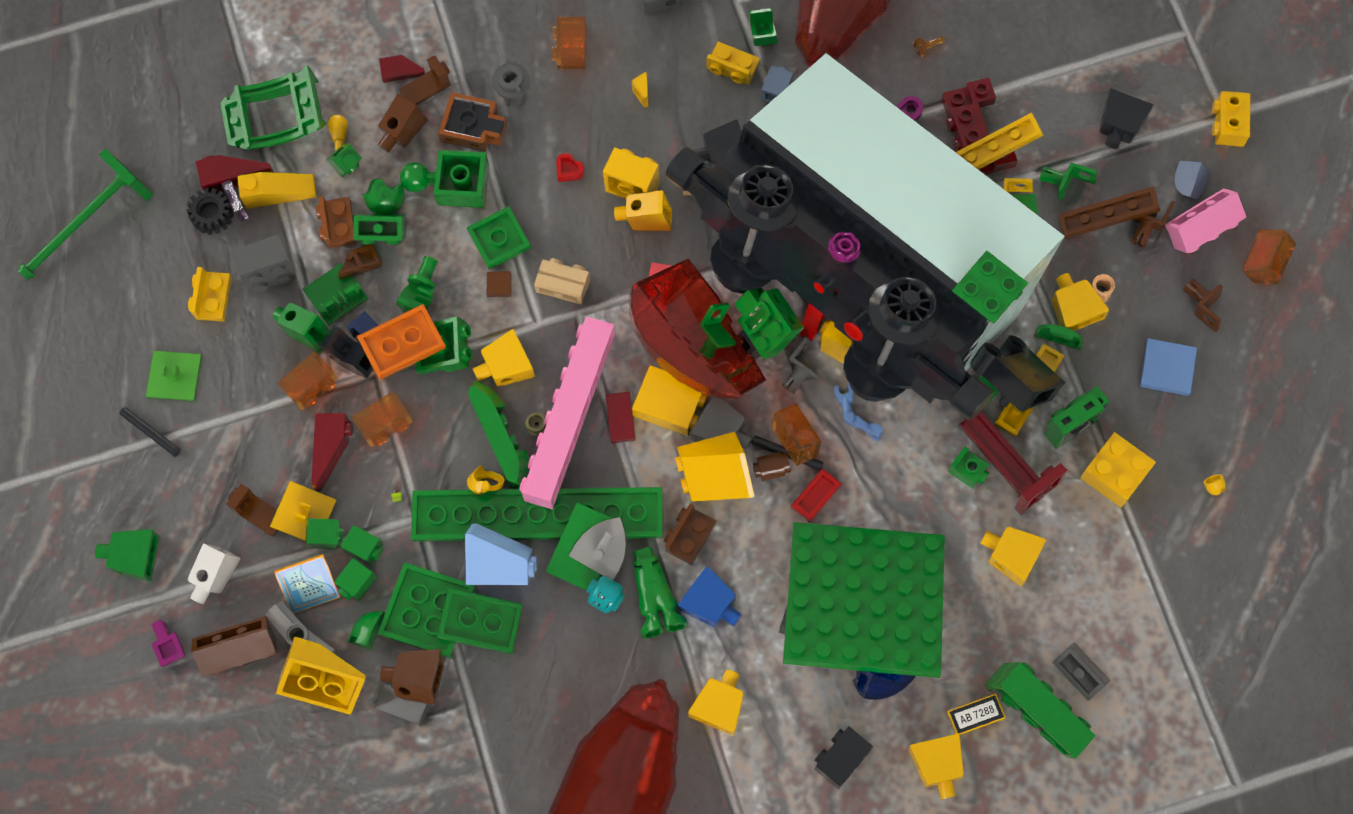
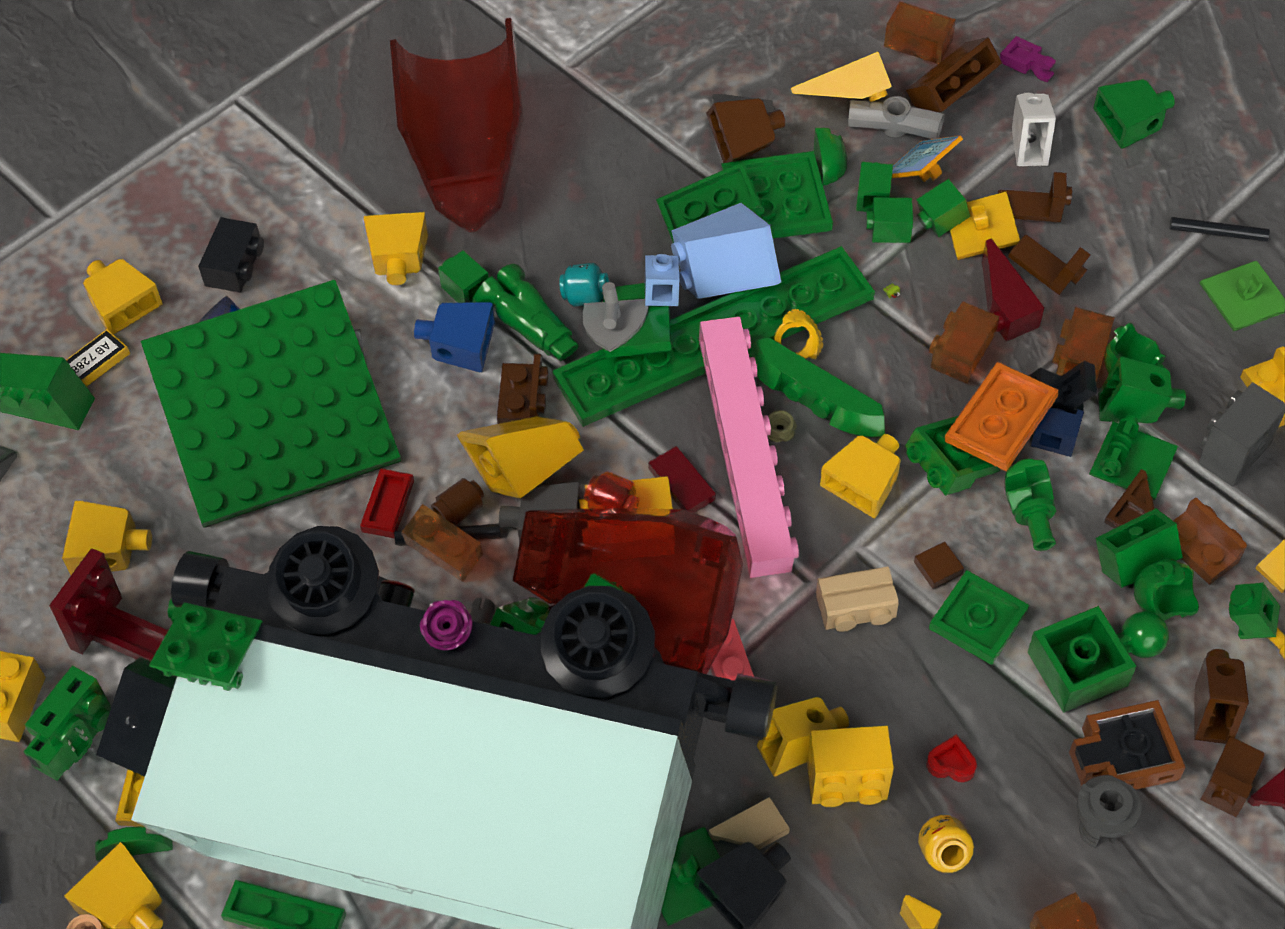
camera: 150 degrees right, 15 degrees down
(227, 709) = (919, 32): none -> clear orange brick
(284, 352) = (1134, 346): none -> green cap
(284, 451) = (1047, 266): none -> reddish brown bracket
(553, 558) = (661, 280): none -> light blue brick
(604, 117) = (946, 843): none -> yellow head
(677, 402) = (611, 492): none -> clear red head
(685, 647) = (461, 277): none -> green brick

